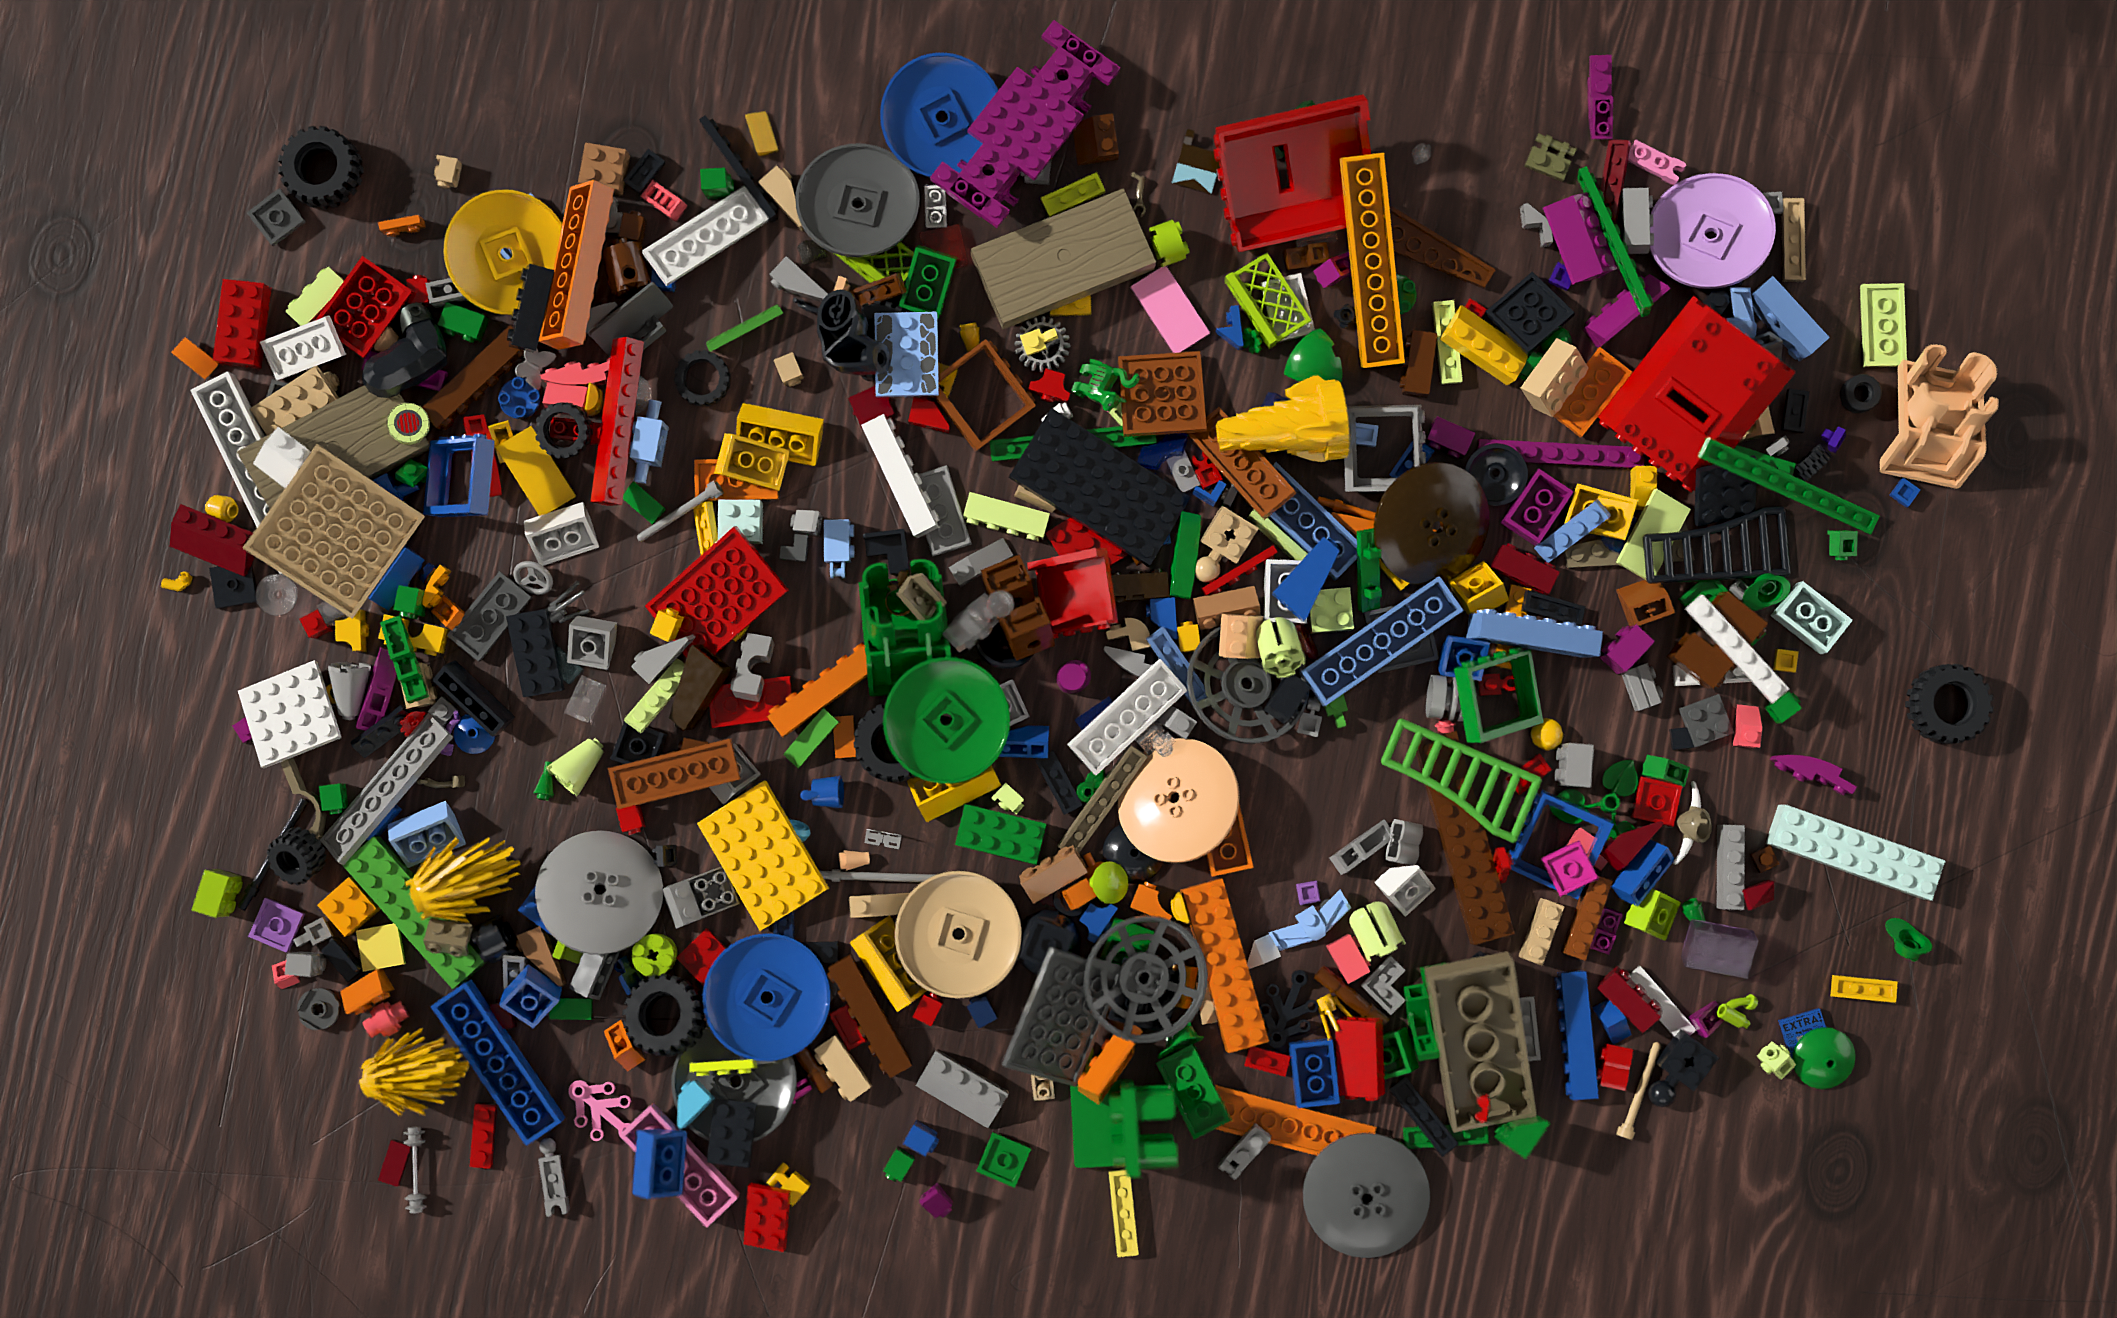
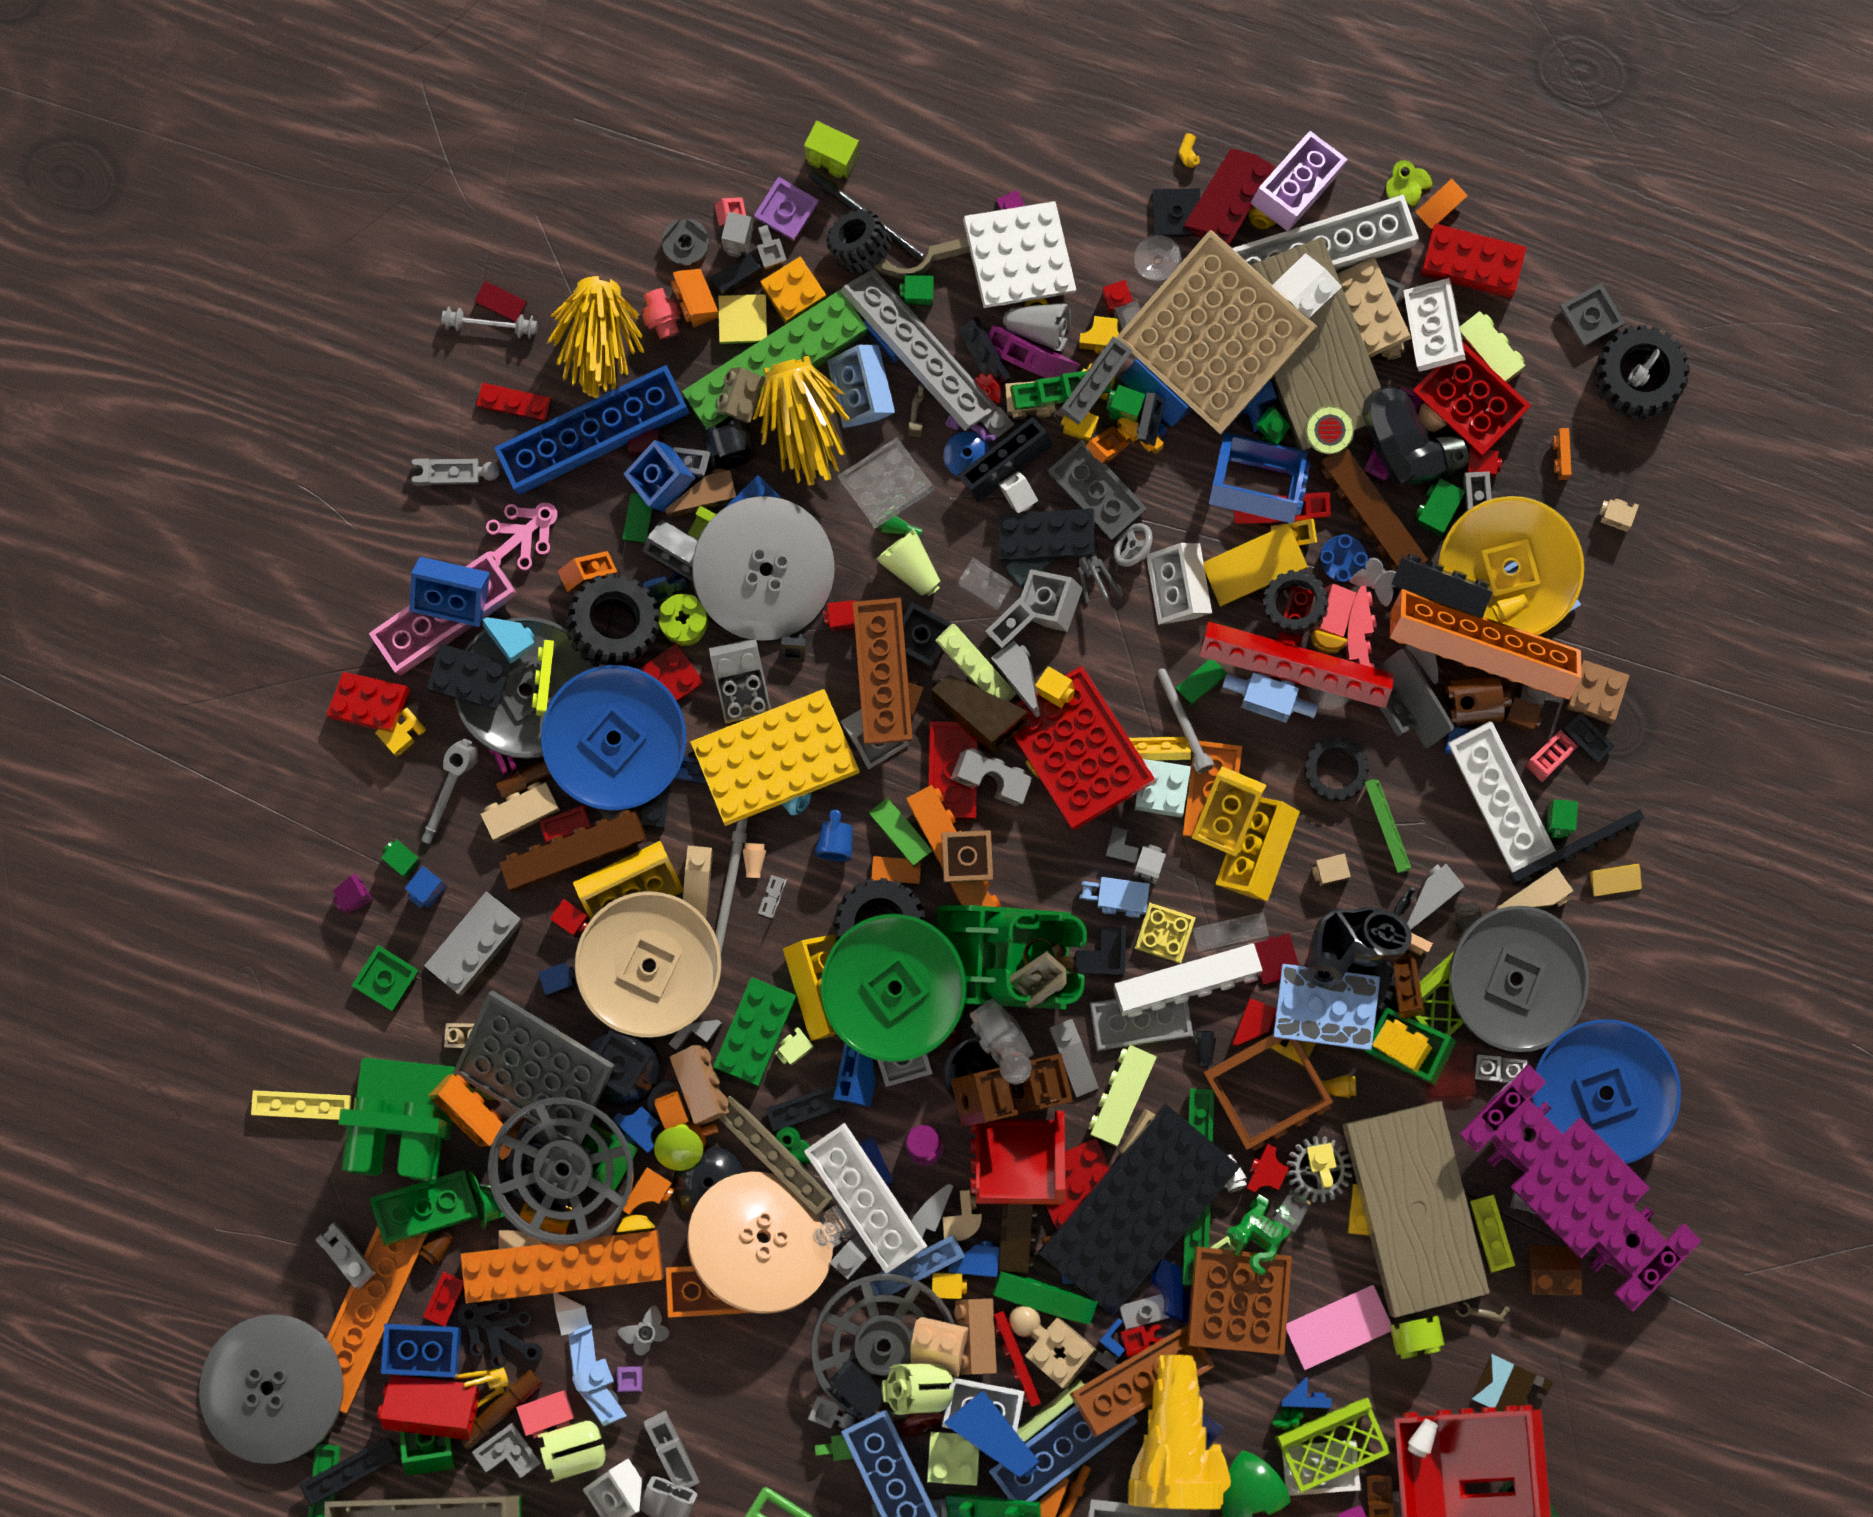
camera: 95 degrees right, 5 degrees down
(182, 389) = (1410, 185): none -> lime plate
(190, 481) = (1298, 181): none -> lavender brick
(322, 167) = (1640, 374): none -> light grey plate
(392, 629) = (1095, 380): none -> dark grey plate
(415, 577) = (1151, 418): none -> black plate
(501, 683) = (1018, 492): none -> white brick
(509, 798) = (885, 483): none -> clear plate
(542, 249) = (1509, 608): none -> yellow cone
(617, 671) = (1010, 623): none -> light grey slope
(807, 1130) = (457, 760): none -> light grey piece
(824, 675) = (966, 856): none -> medium nougat brick
(854, 447) = (1230, 932): none -> clear tile
(863, 501) = (1165, 933): none -> light yellow tile
(929, 286) = (1401, 1045): none -> yellow brick
(954, 454) = (1204, 1047): none -> black cone
(1006, 877) = (704, 1030): none -> light grey slope
(1080, 360) = (1292, 1210): none -> clear tile
(1225, 1075) = (436, 1247): none -> reddish brown cone
(1253, 226) = (1423, 1439): none -> white cone
(1267, 885) = (645, 1332): none -> light grey animal
(1420, 1022) = (457, 1484): green arch -> none

